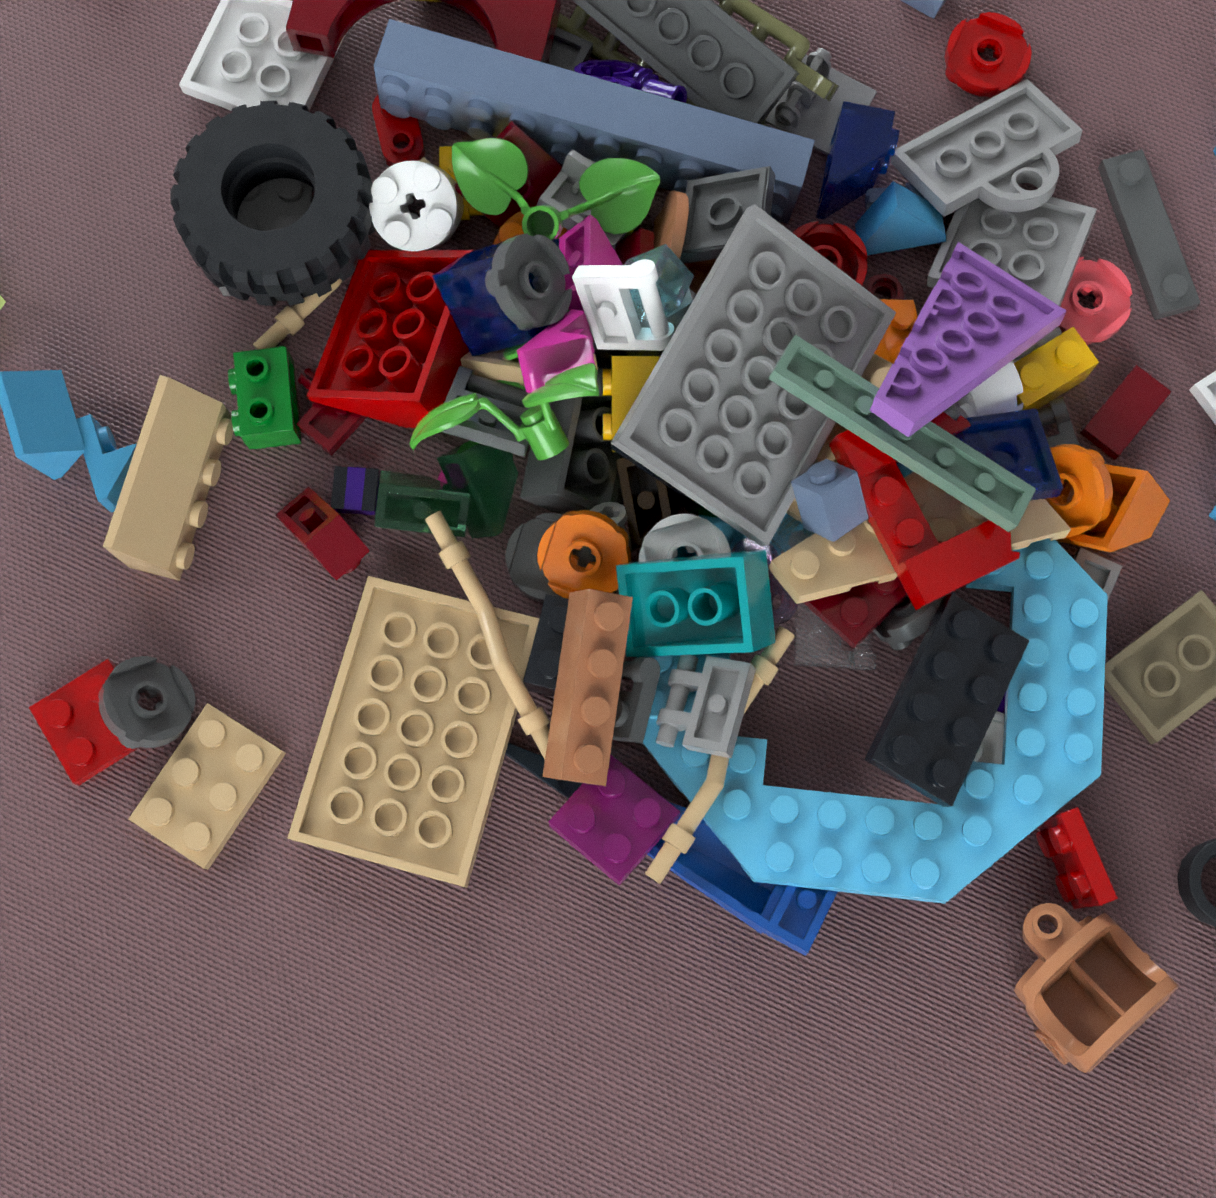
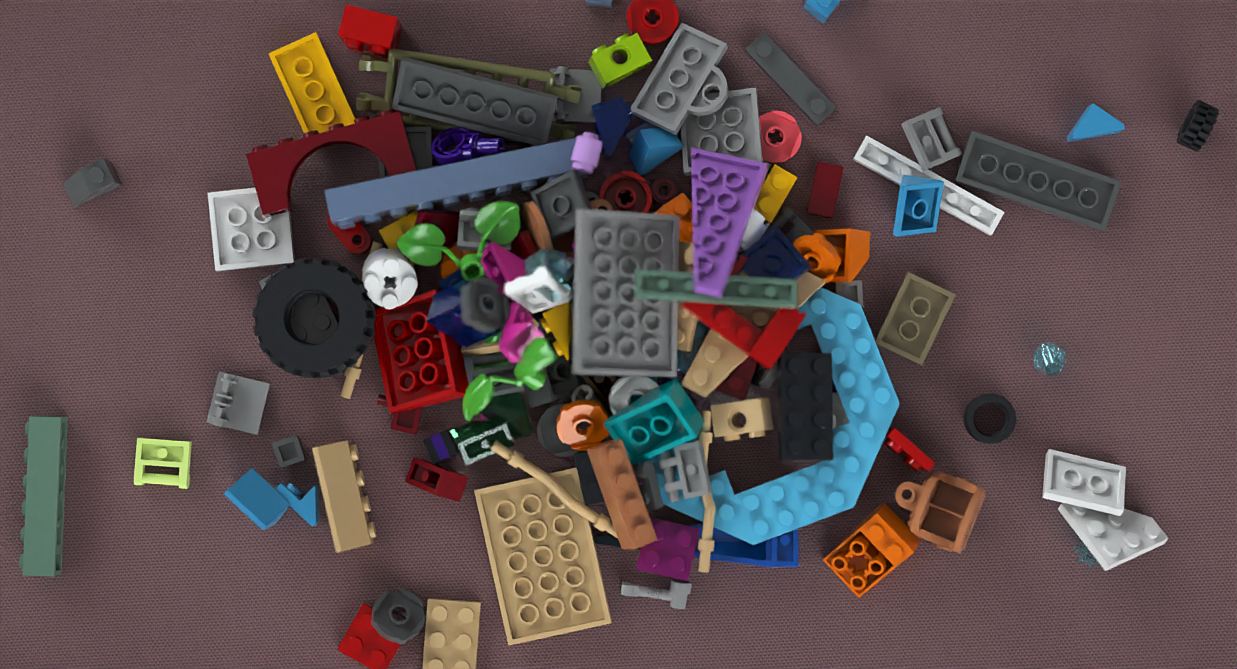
camera: 25 degrees left, 10 degrees up
(103, 281) = (238, 403): none -> light grey hinge
(132, 382) = (289, 451): none -> dark grey plate
(265, 398) = (365, 423): green brick -> none
(590, 899) = (677, 594): none -> light grey brick
(802, 155) = (586, 153): none -> lavender brick
(816, 653) = (726, 418): none -> tan brick
(830, 499) = (695, 337): sand blue brick -> none
(935, 80) = (610, 72): none -> lime brick
(937, 994) = (872, 550): none -> orange slope

